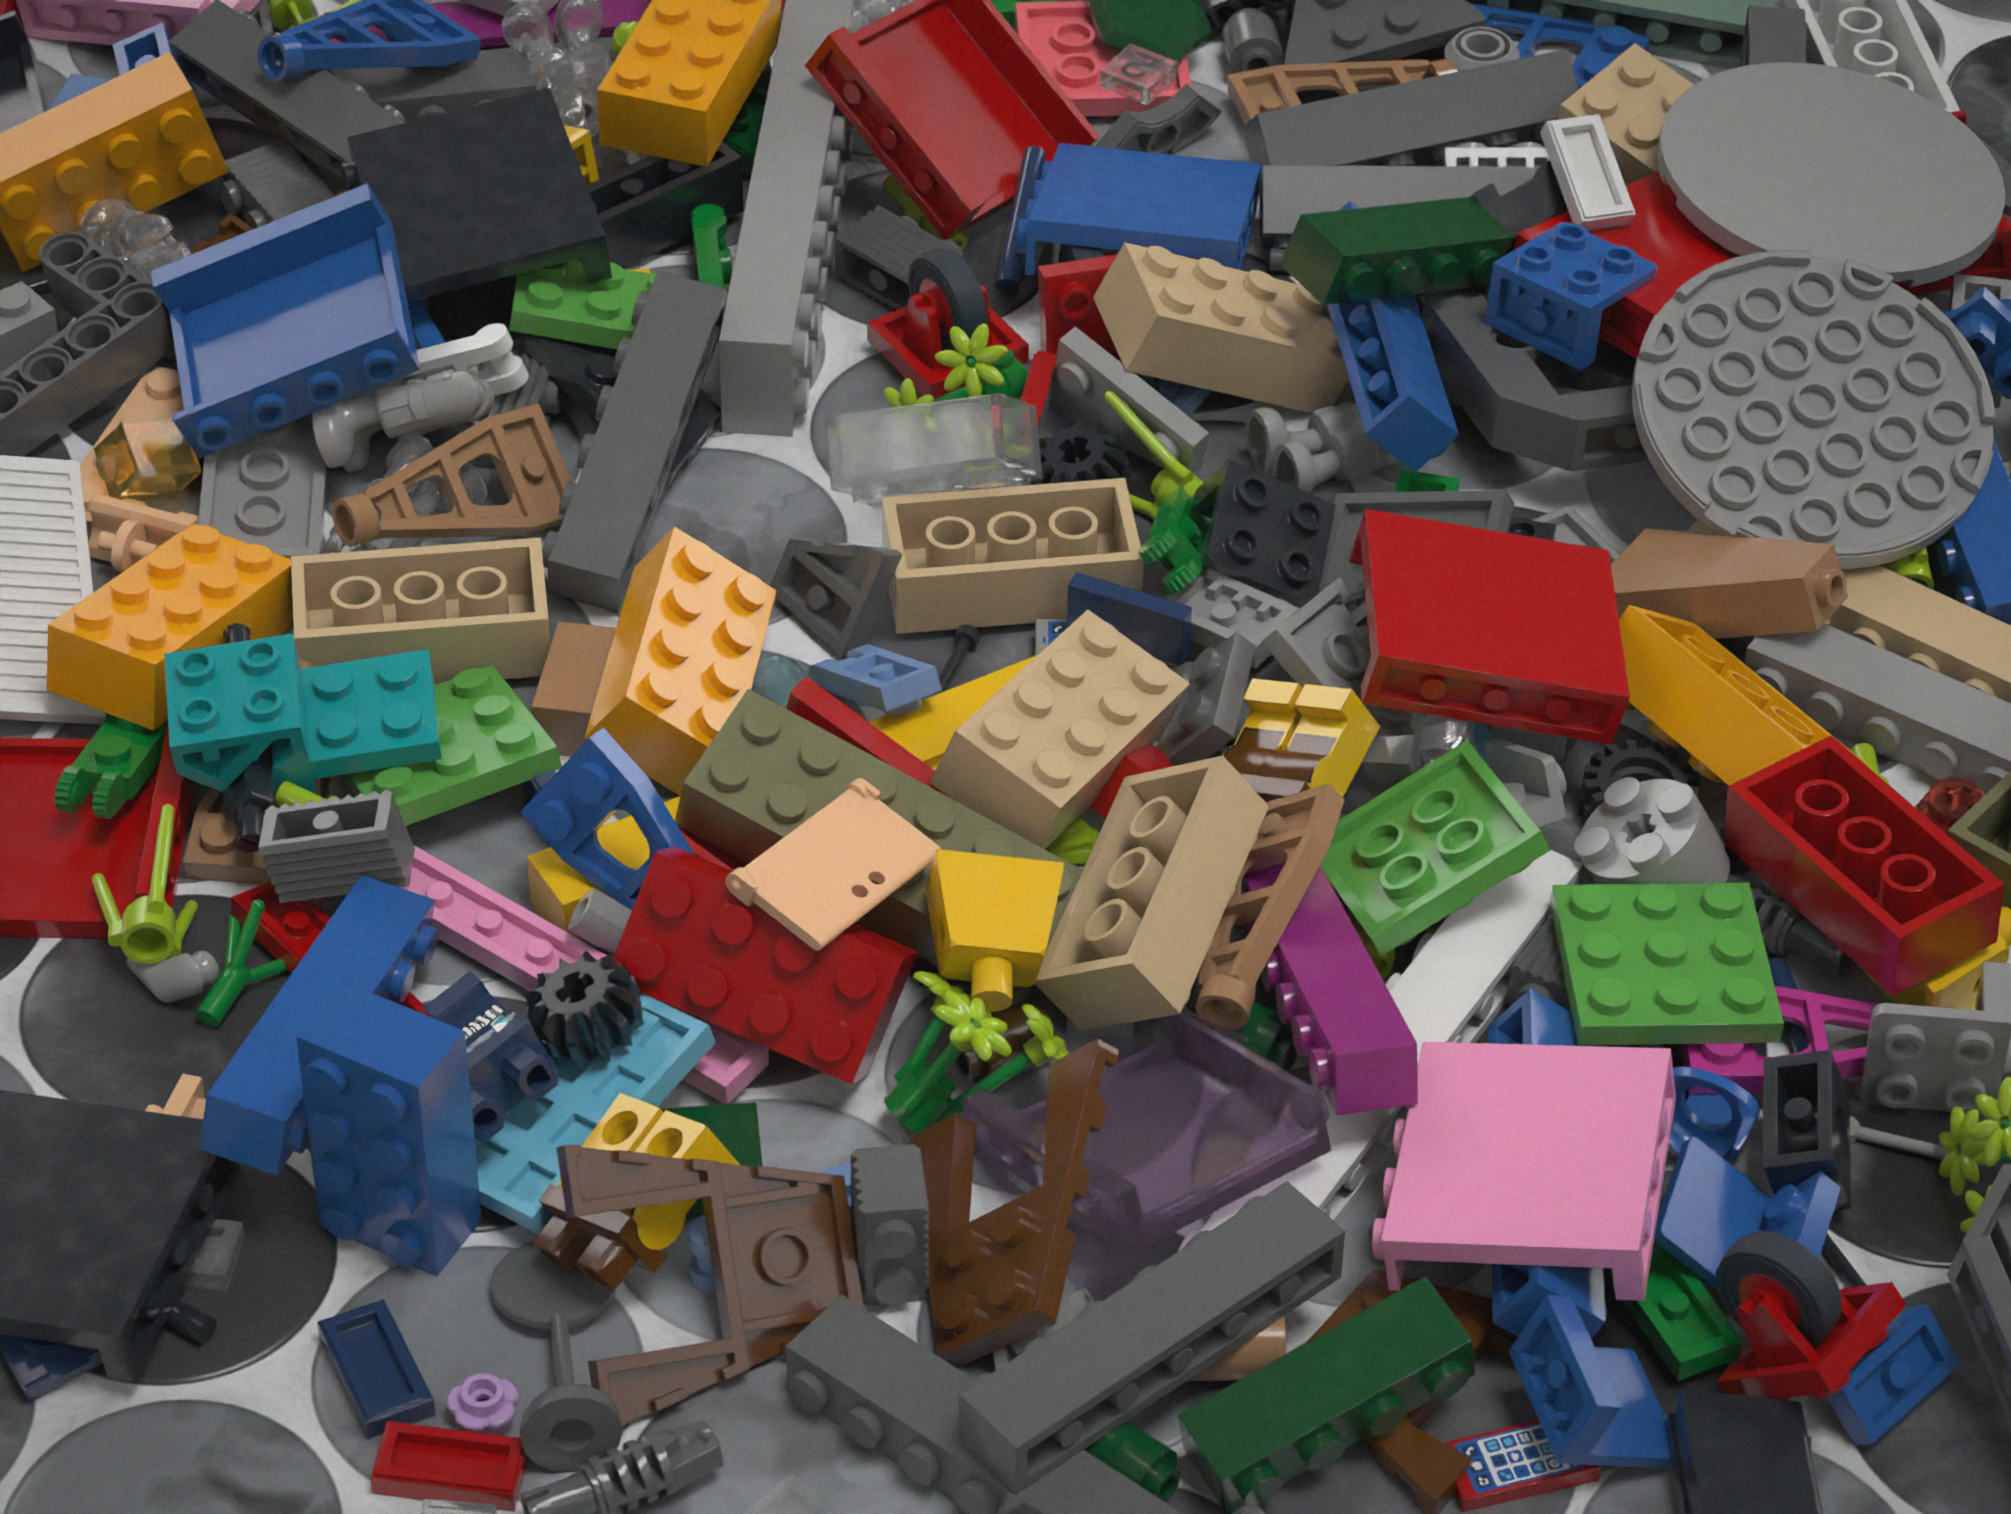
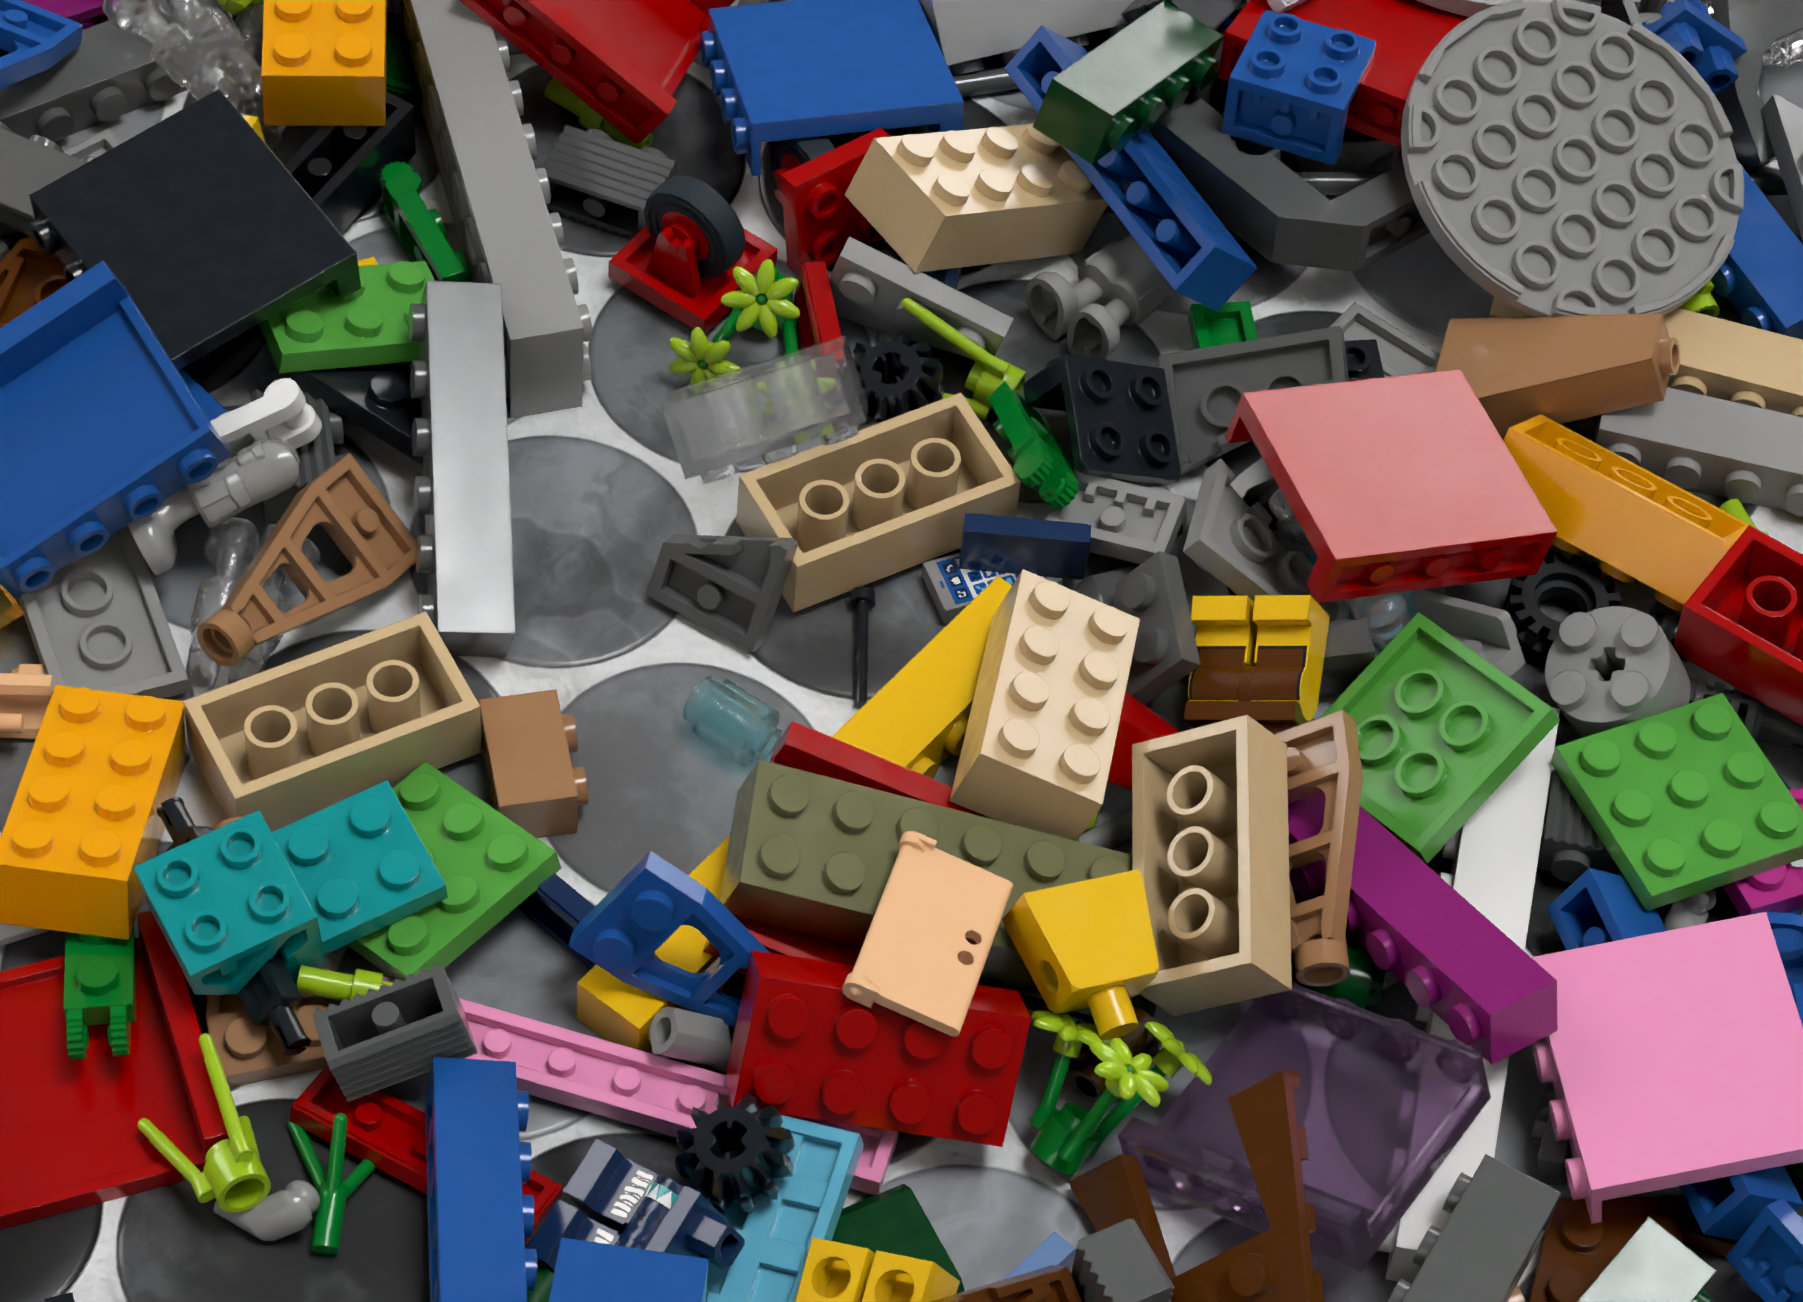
camera: 25 degrees left, 10 degrees up
(680, 656) = (625, 717): light orange brick -> none
(878, 679) = (819, 680): medium blue plate -> none
(1011, 261) = (701, 102): dark blue bar -> none

